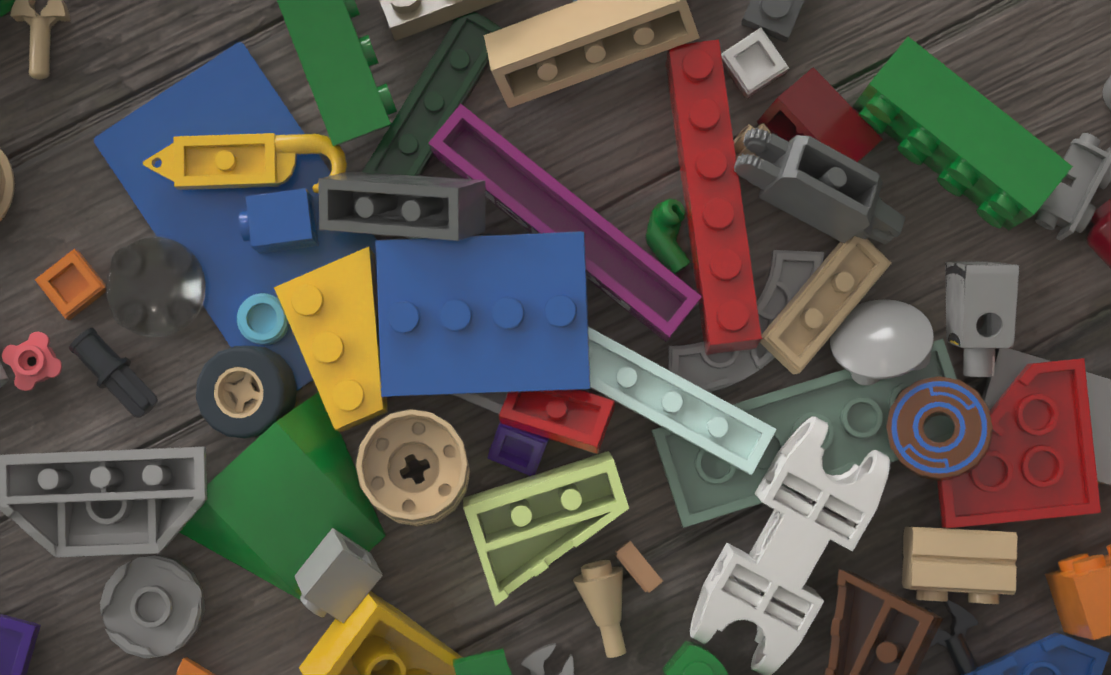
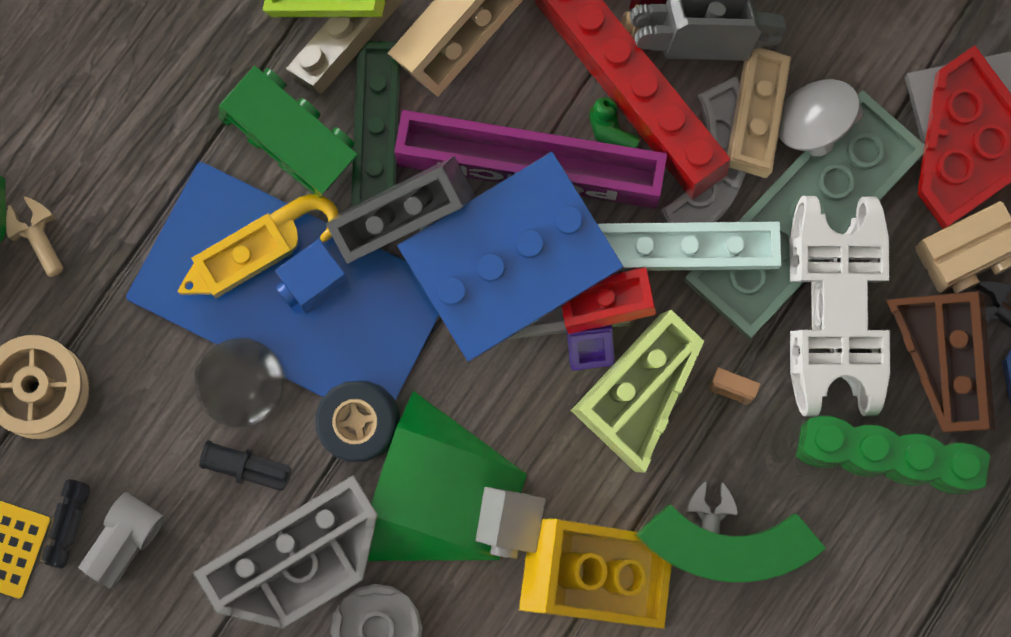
camera: 30 degrees left, 5 degrees down
(46, 364) = (178, 505): coral plate -> none
(71, 284) = (172, 417): orange tile -> none
(262, 319) = (338, 360): medium azure tile -> none
(338, 334) = (407, 338): yellow wedge -> none
(385, 460) = (520, 379): tan wheel -> none
(602, 593) = (718, 423): tan cone -> none
(939, 398) = (893, 130): reddish brown tile -> none
(976, 291) = (876, 40): light grey torso -> none

